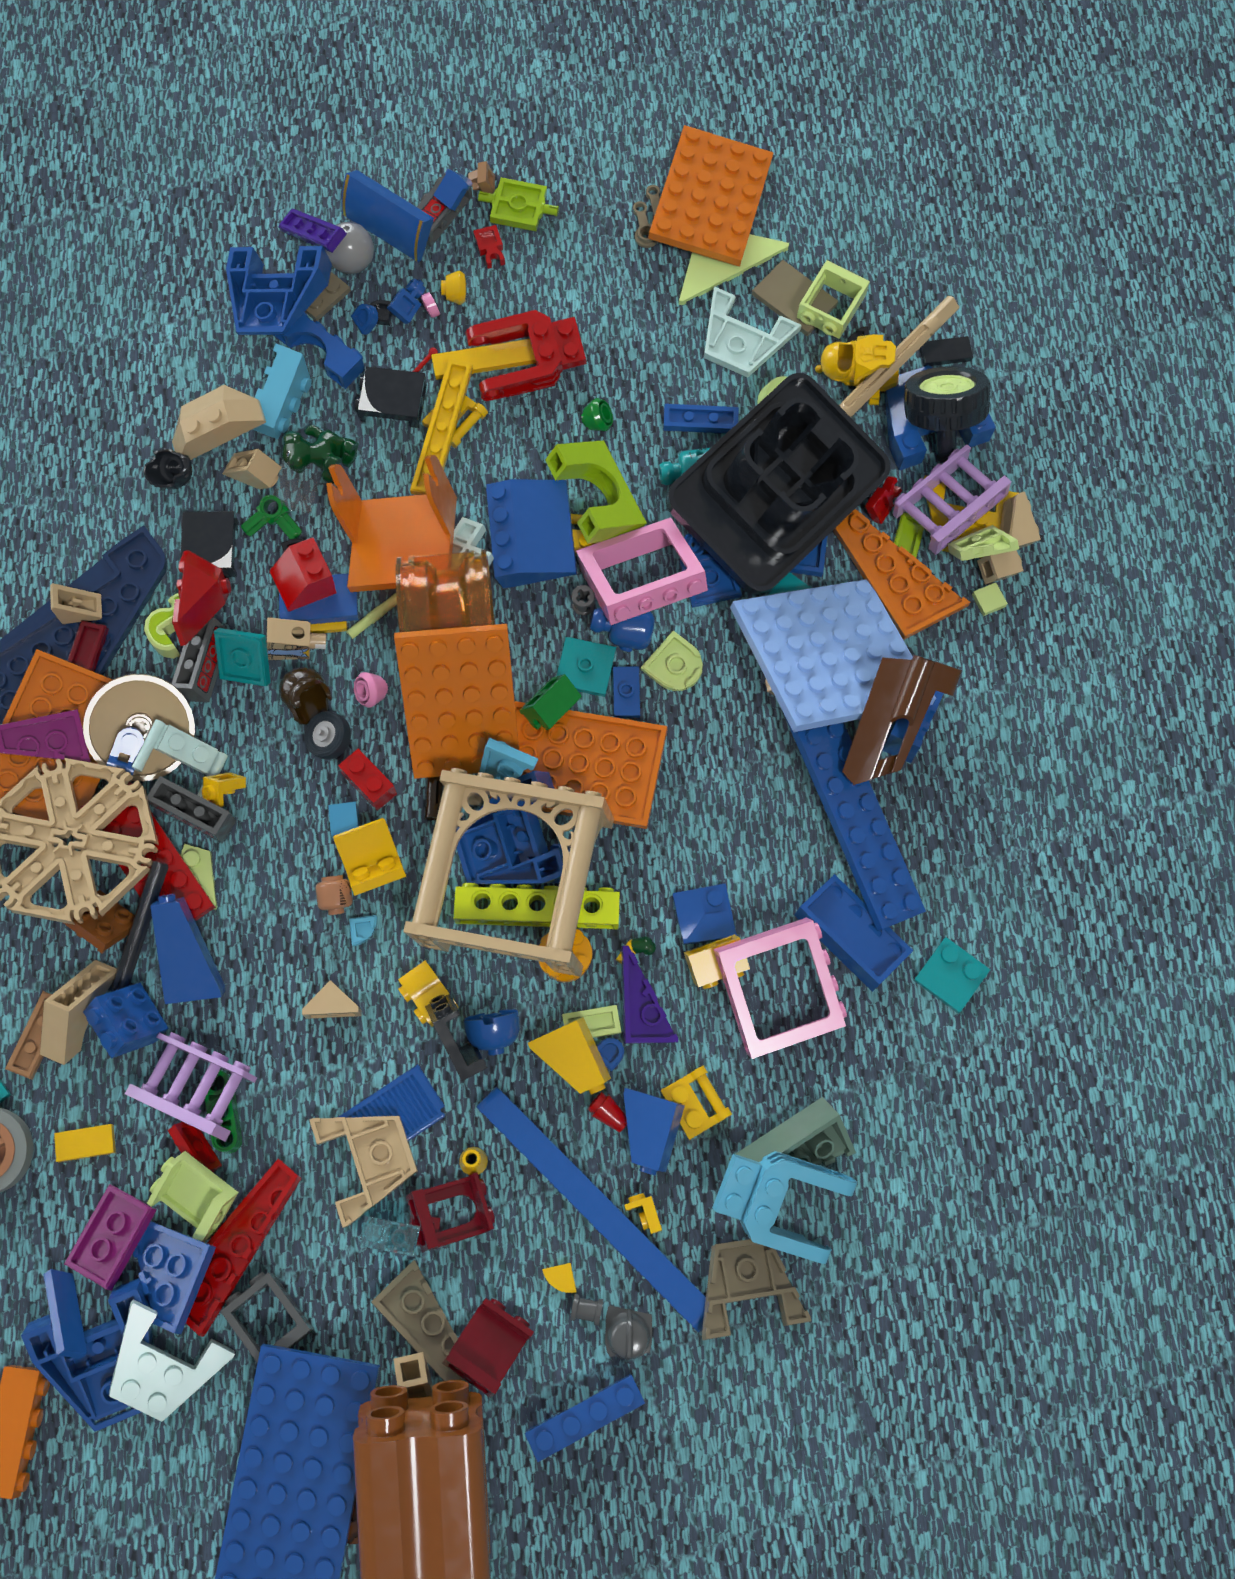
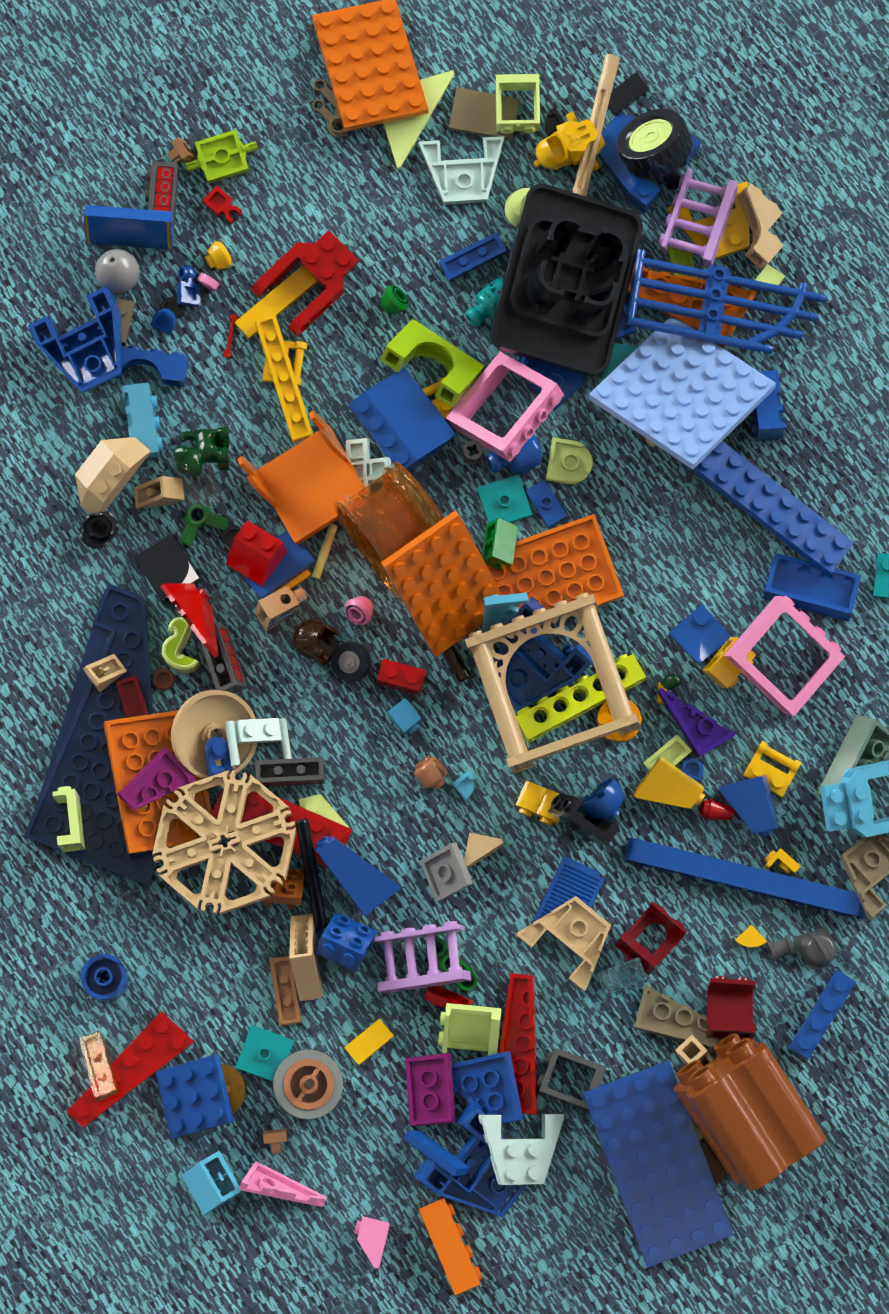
camera: 25 degrees left, 5 degrees up
(135, 648) = (163, 679): none -> reddish brown tile
(220, 784) = (299, 741): yellow bracket -> none
(242, 657) = (253, 640): teal plate -> none
(280, 1008) = (446, 872): none -> light grey plate
(312, 230) = (81, 274): dark purple tile -> none
(369, 856) = (440, 731): yellow bracket -> none
(391, 395) = (227, 373): black panel -> none
(452, 189) = (170, 177): blue tile -> none
(480, 1164) = (642, 902): yellow cone -> none
(881, 501) = (648, 243): red plate -> none
(899, 691) = (750, 397): reddish brown panel -> none
(915, 589) = (713, 305): none -> blue piece
(983, 543) = (742, 242): yellowish green wing -> none

